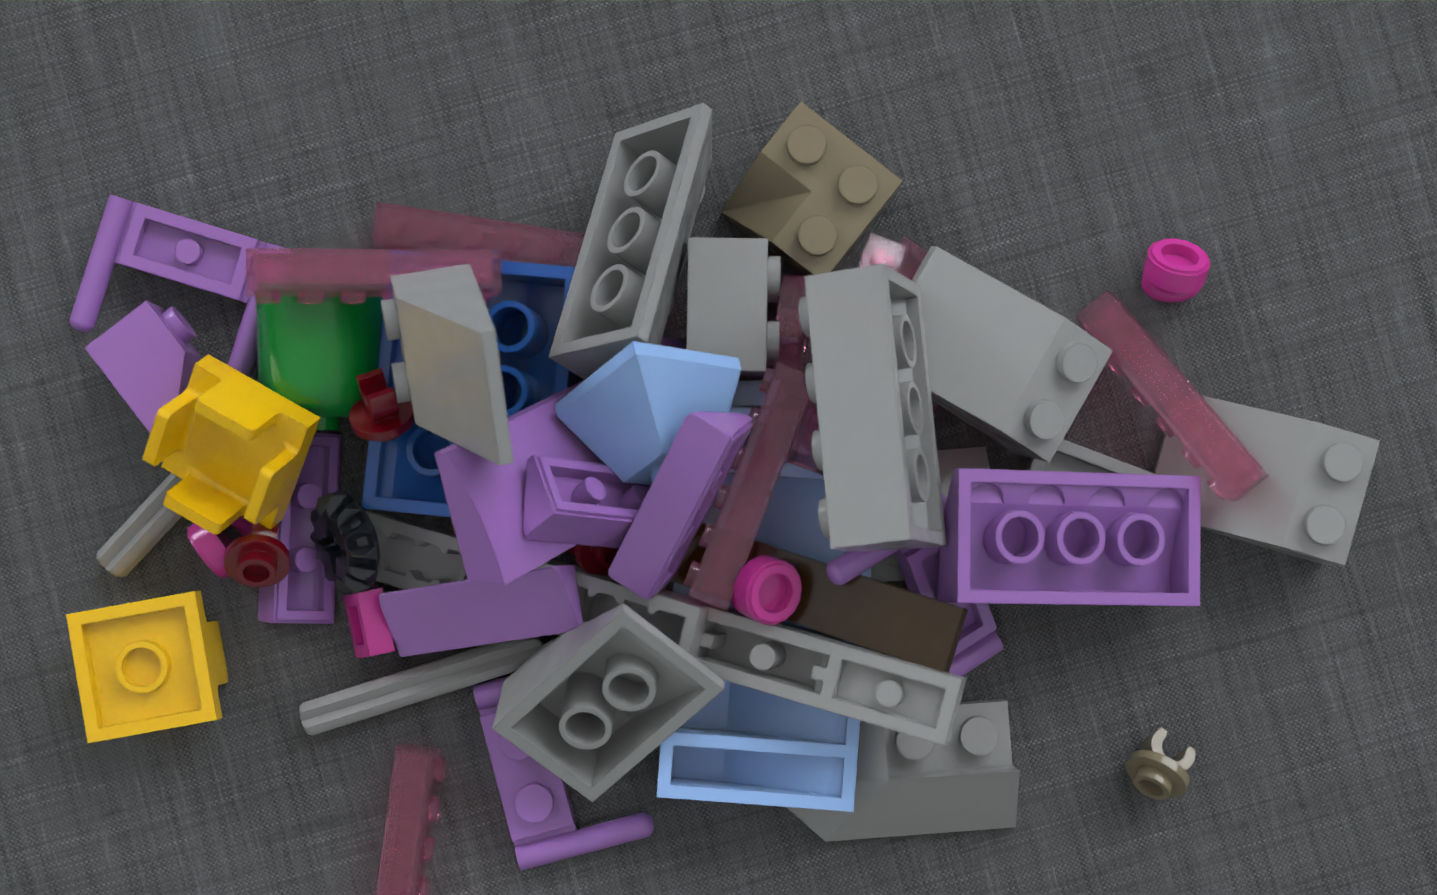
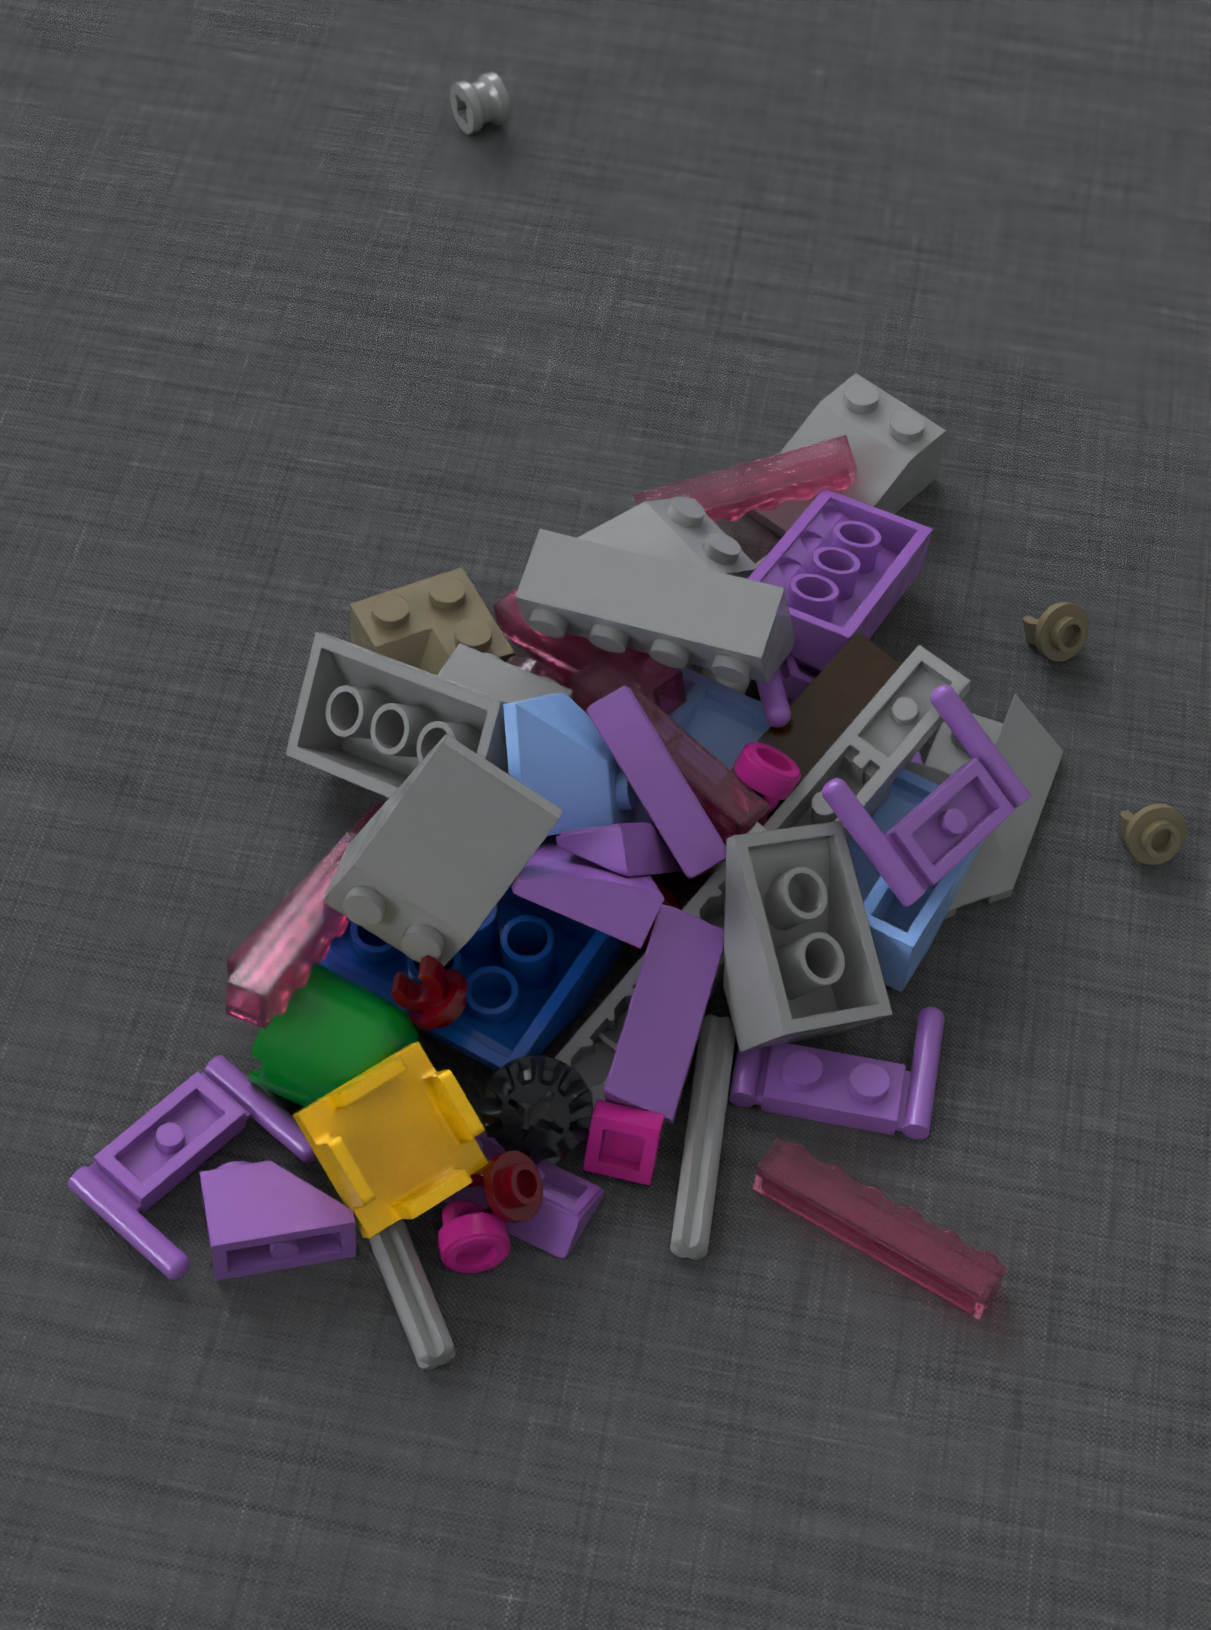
camera: 70 degrees left, 35 degrees down
(147, 666) = (562, 1342): yellow panel -> none
(792, 778) = (947, 820): none -> medium lavender plate
(1174, 270) = (638, 455): dark pink tile -> none

